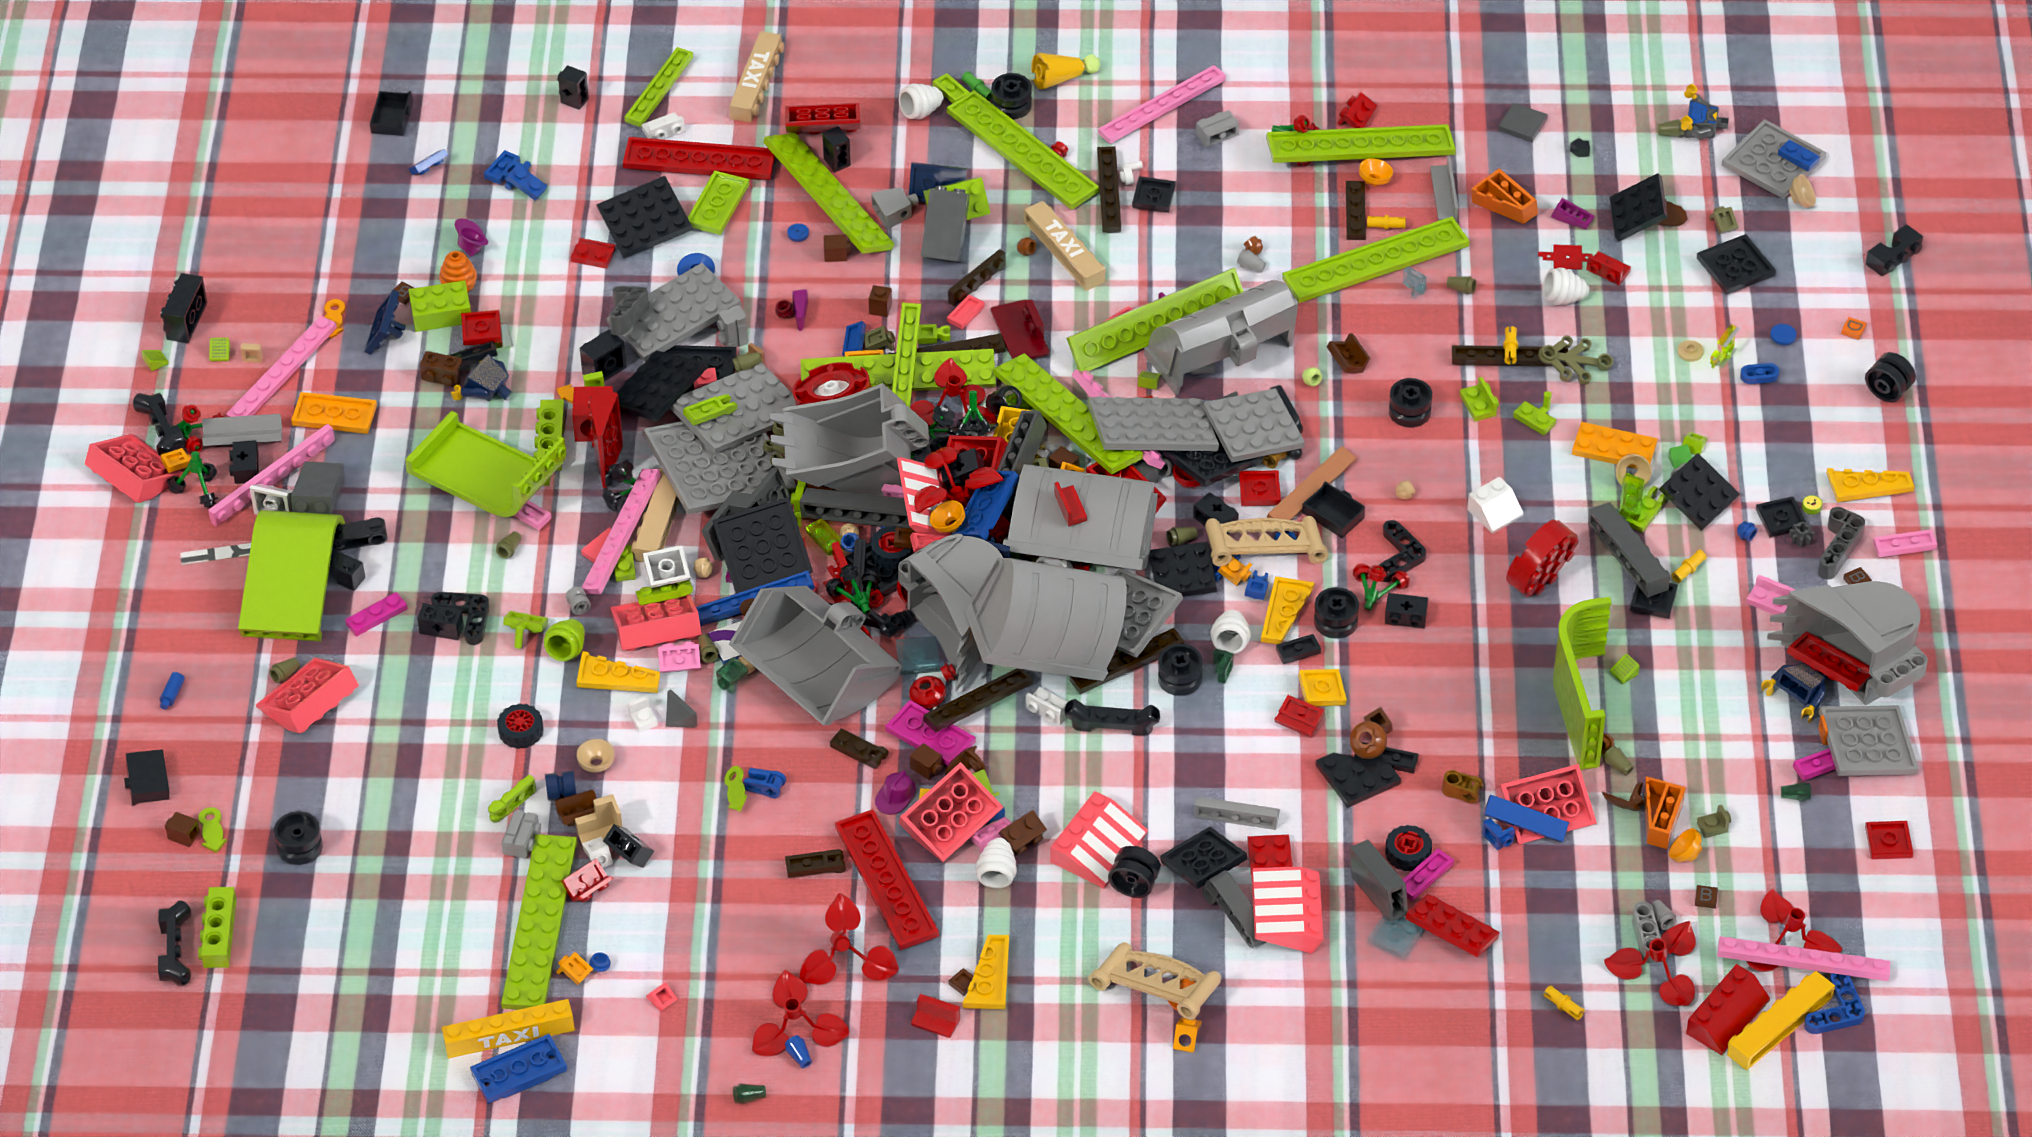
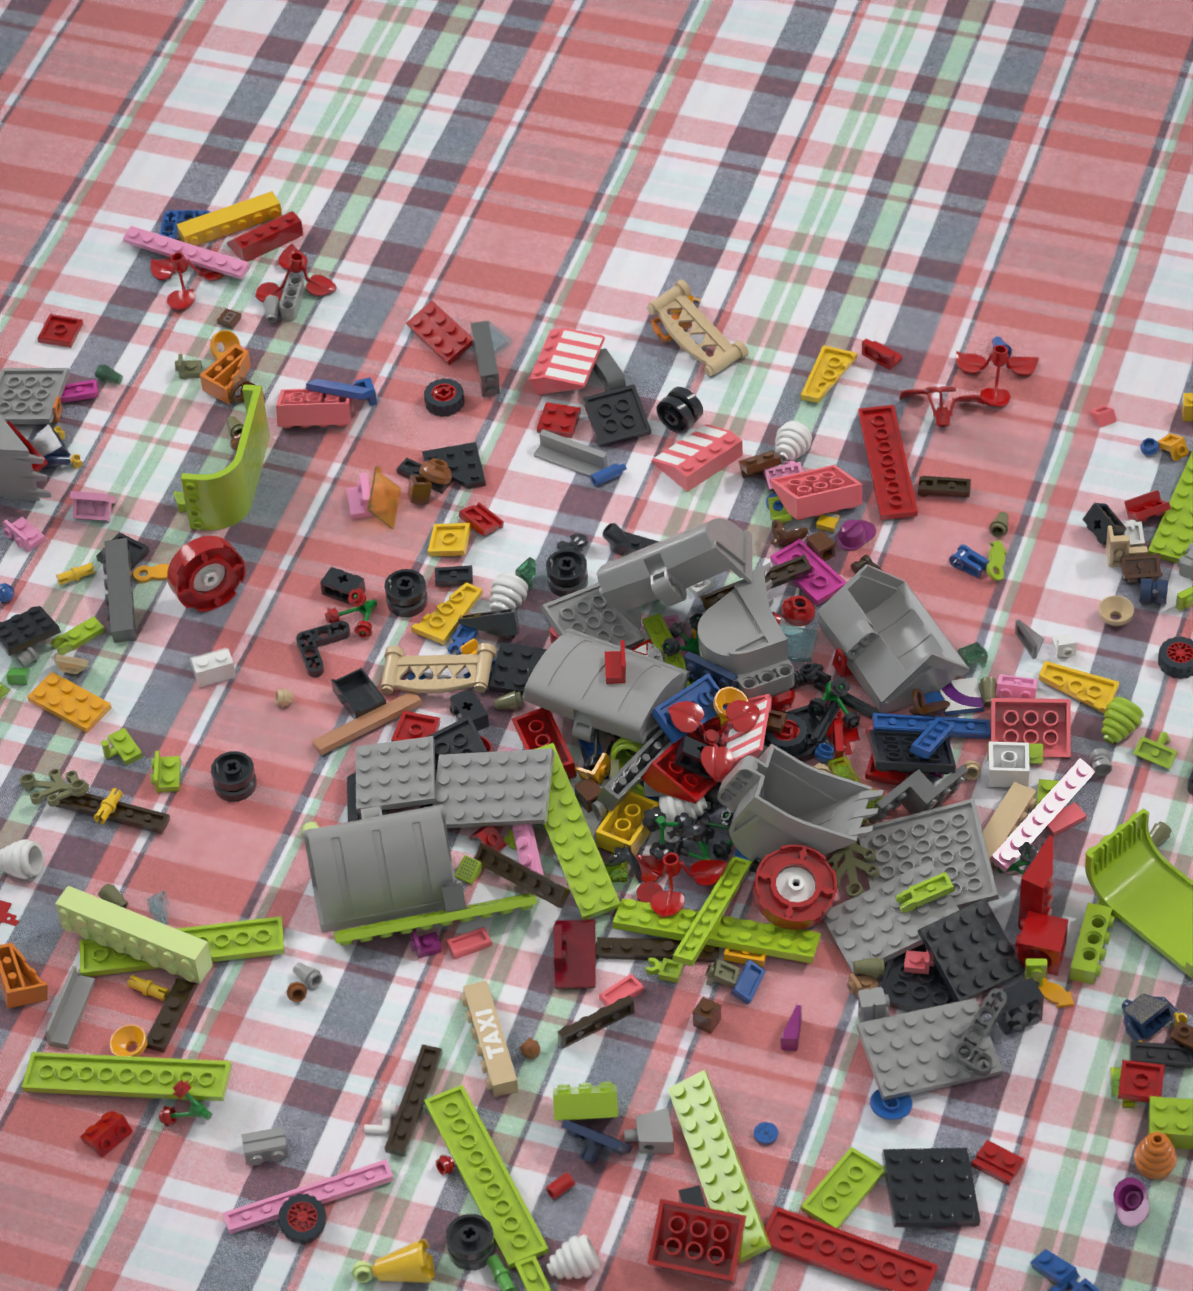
camera: 160 degrees left, 0 degrees up
(742, 831) = (999, 526): none -> olive cone
(744, 555) = (932, 738): none -> blue plate
(747, 1092) = (1050, 327): clear green cone -> none
(784, 308) = (811, 1032): dark red plate -> none
(836, 248) = (732, 1094): reddish brown brick -> none
(945, 224) = (610, 1064): dark grey brick -> none
(956, 155) = (560, 1186): none -> red piece
(961, 981) = (850, 377): reddish brown tile -> none
(1086, 363) = (522, 876): none -> dark brown plate
(1144, 326) = (453, 896): none -> dark grey brick
(1153, 194) = (369, 1081): black plate -> none
(1157, 81) = (302, 1218): none -> black wheel
(1187, 797) = (607, 474): none -> blue cylinder
(1192, 708) = (577, 540): none -> black piece
(1235, 598) = (497, 622): none -> black slope
(1349, 354) = (264, 844): reddish brown bracket -> none
(1410, 705) = (384, 498): none -> clear yellow piece
(1416, 233) = (134, 934): none -> yellowish green brick
(1427, 873) = (451, 370): dark pink plate -> none
(1431, 712) = (359, 498): none -> bright pink bracket
(1460, 786) = (375, 433): pearl gold piece -> none
(1564, 1002) = (384, 265): yellow pin -> none
(1611, 590) = (157, 572): none -> light orange brick
(1631, 496) = (88, 634): clear neon green plate -> none
(1717, 636) = (92, 505): none -> bright pink bracket

